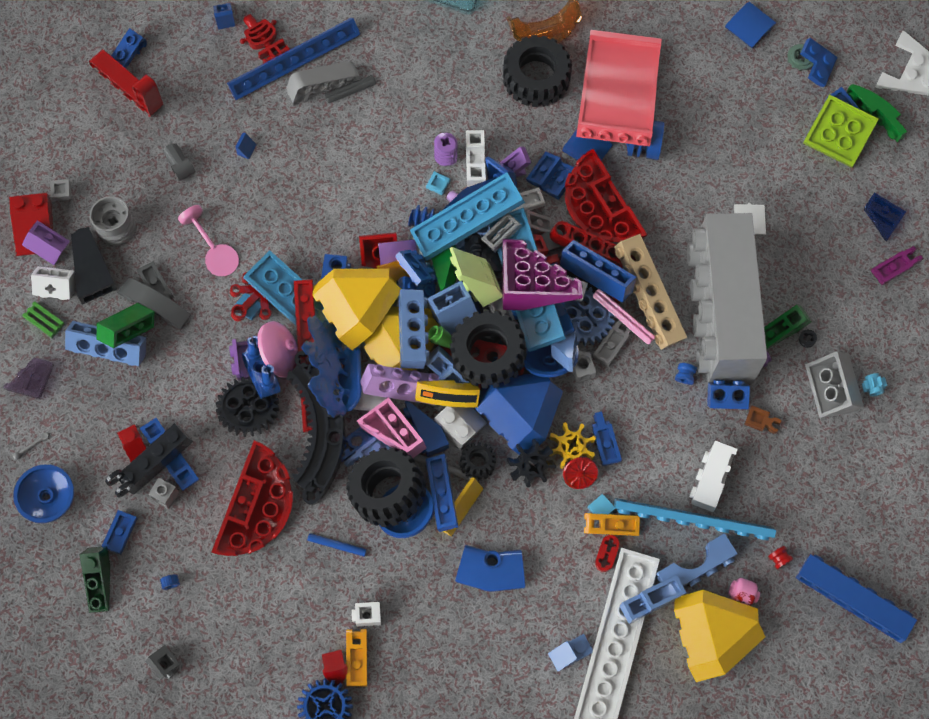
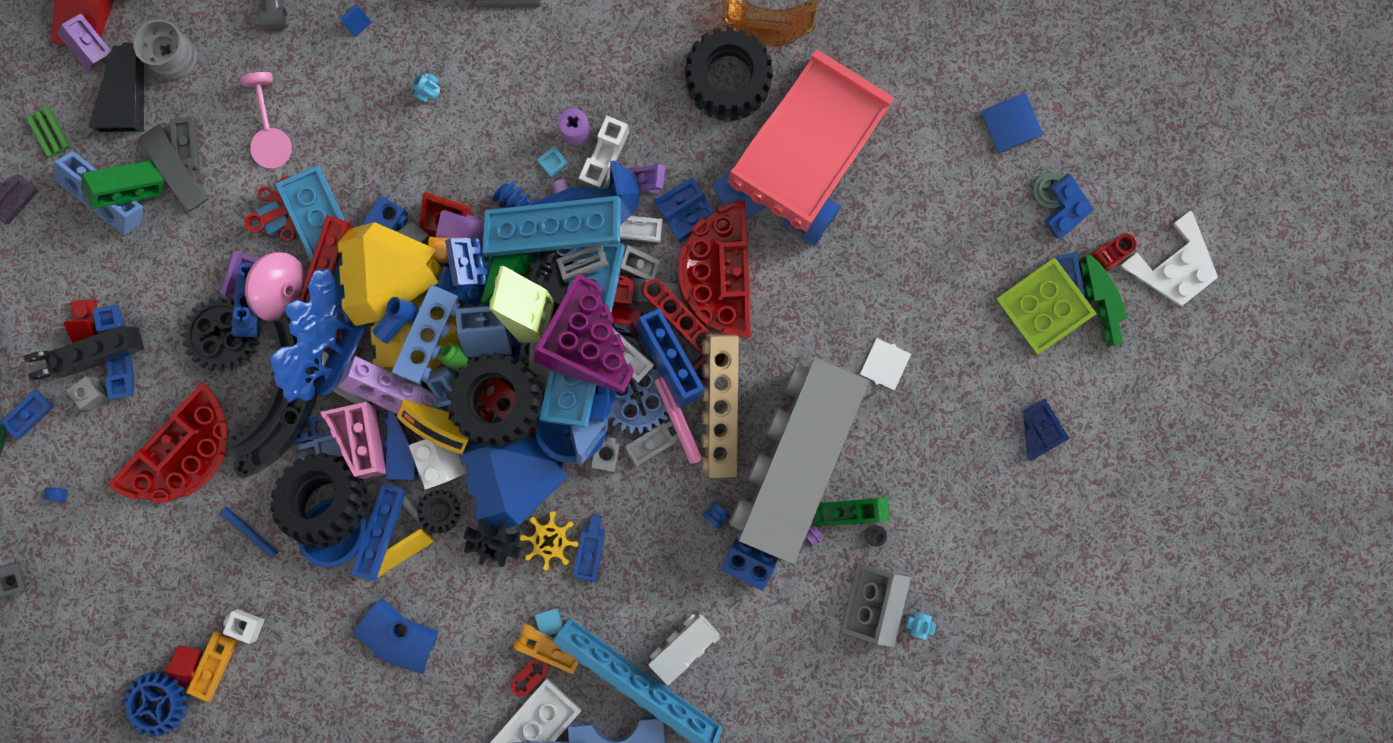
camera: 30 degrees right, 15 degrees up
(53, 283) = (70, 94): white brick -> none
(320, 169) = (425, 87): none -> medium azure gear
(386, 320) = (397, 314): none -> blue piece
(580, 473) = (542, 576): red wheel -> none
(758, 419) = (771, 604): dark orange plate -> none
(865, 78) = (1111, 254): none -> red piece
(895, 266) = (1022, 496): magenta hinge -> none

